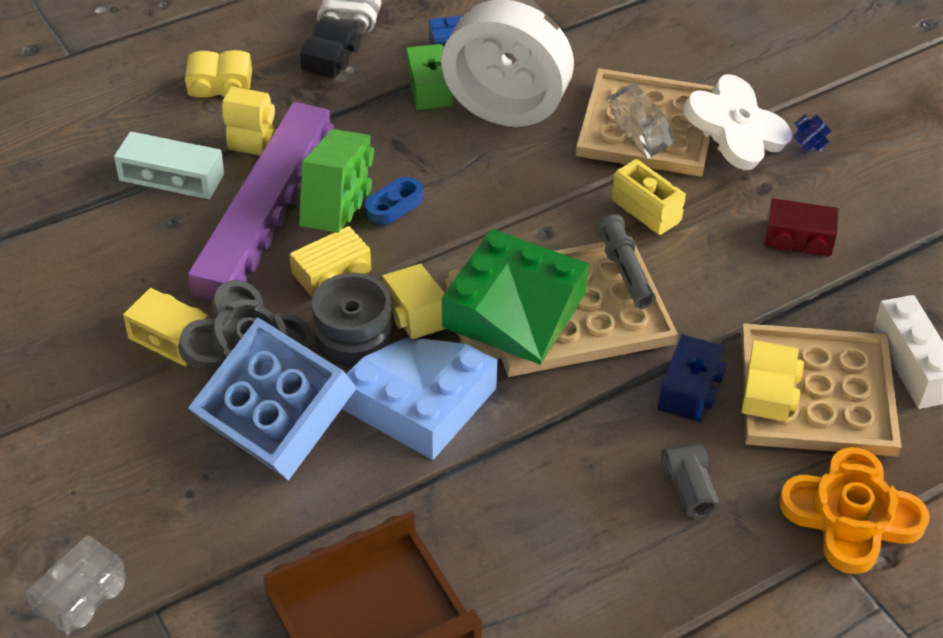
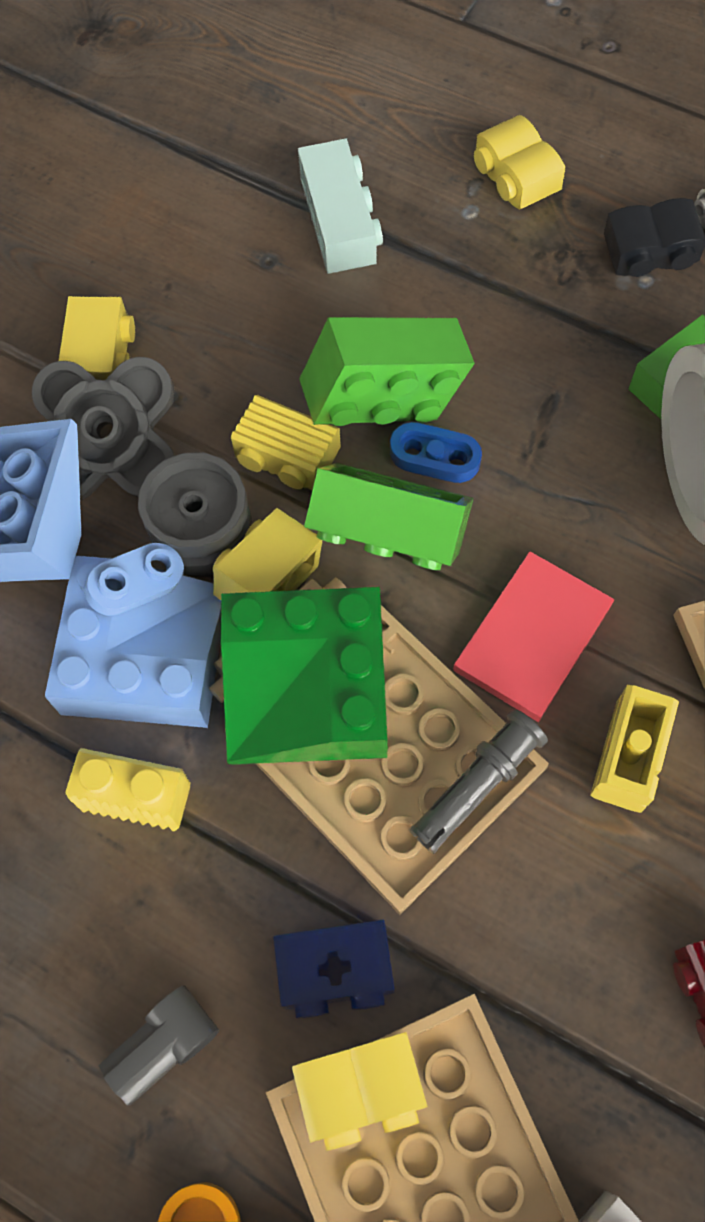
camera: 65 degrees right, 20 degrees up
(248, 120) = (441, 231): light yellow brick -> none
(260, 203) = (285, 329): medium lavender brick -> none
(385, 352) = (137, 577): none -> light blue plate
(432, 224) = (388, 515): none -> bright green brick
(519, 428) = (128, 789): none -> light yellow brick
(545, 213) = (533, 636): none -> coral tile

